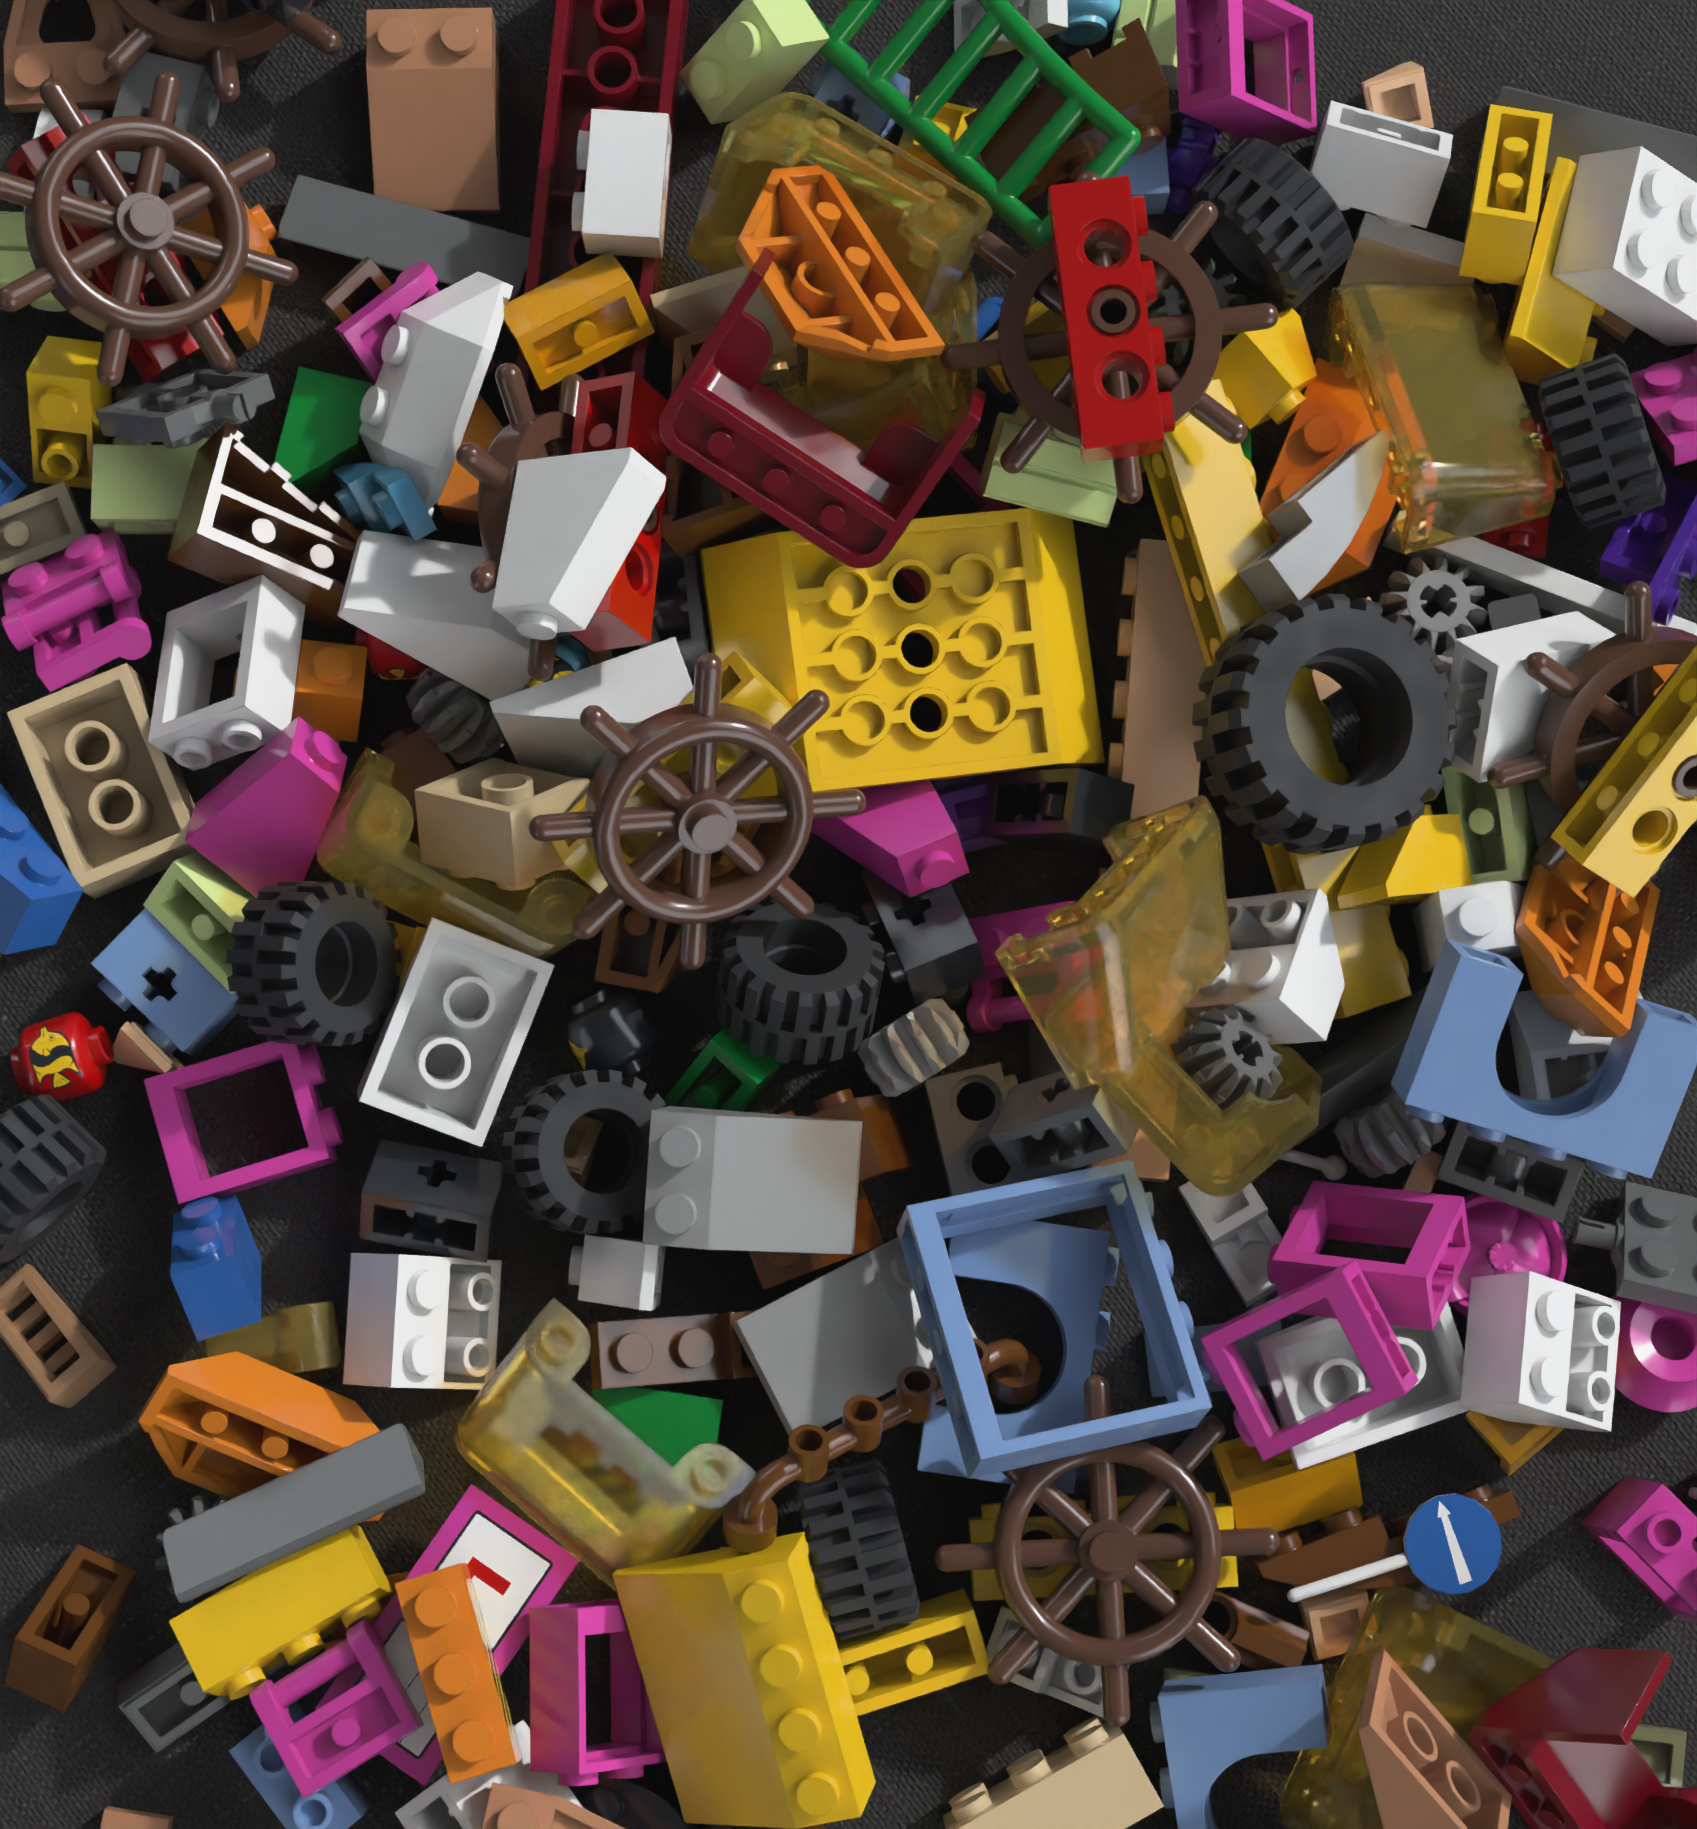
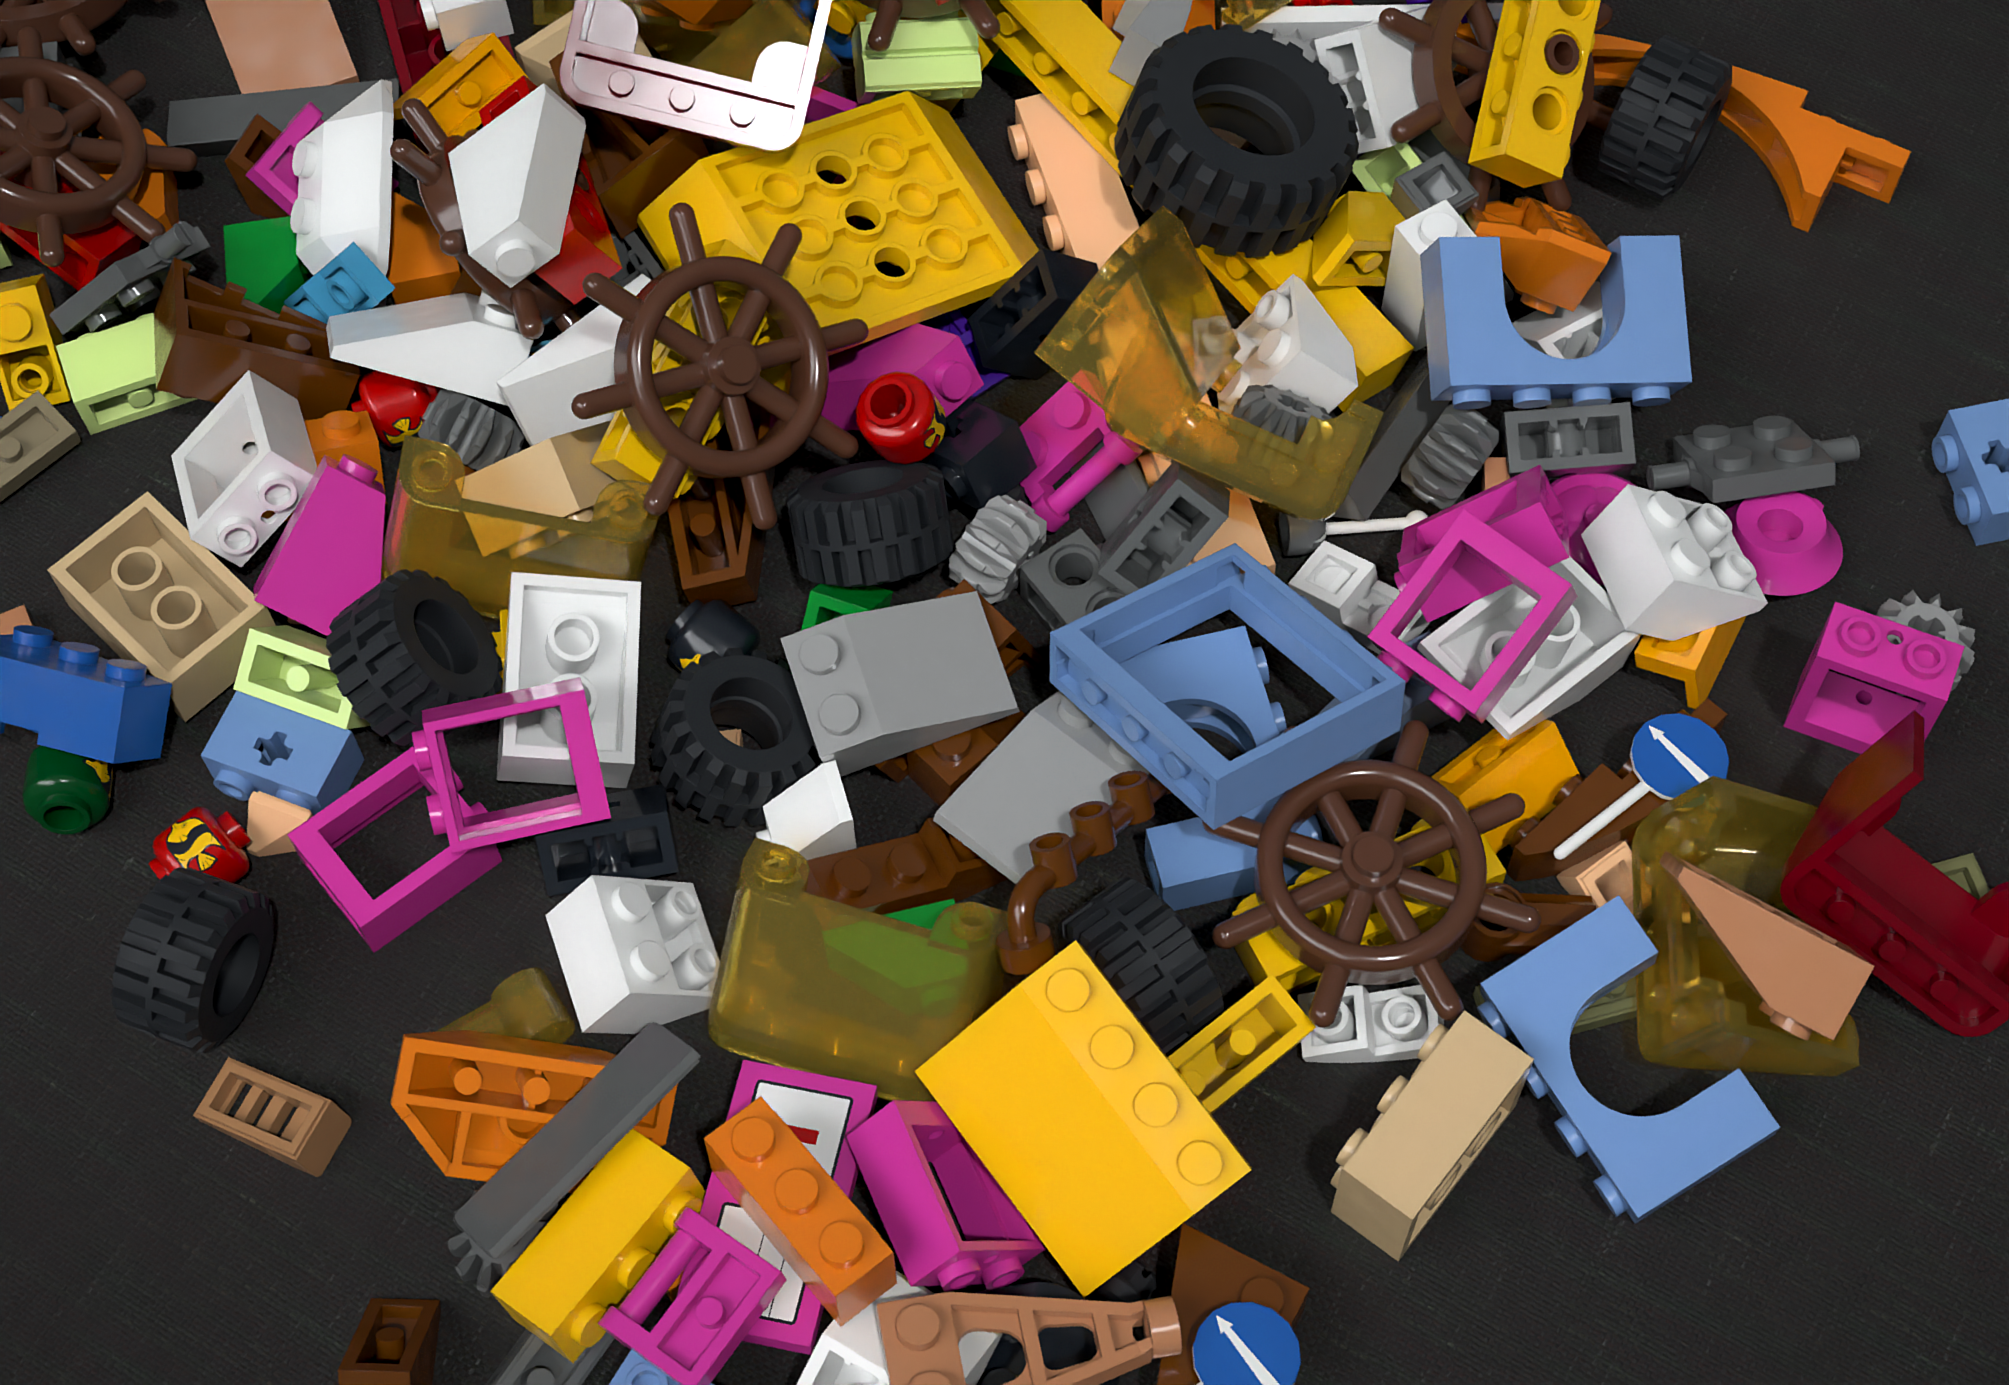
camera: 20 degrees left, 20 degrees down
(65, 586) = (84, 449): dark pink plate -> none
(80, 645) = (101, 486): dark pink plate -> none
(216, 1266) = (417, 960): blue brick -> none
(356, 1169) = (444, 808): none -> dark pink window
(846, 894) = (901, 417): none -> red head
(1504, 848) = (1431, 184): none -> dark grey slope

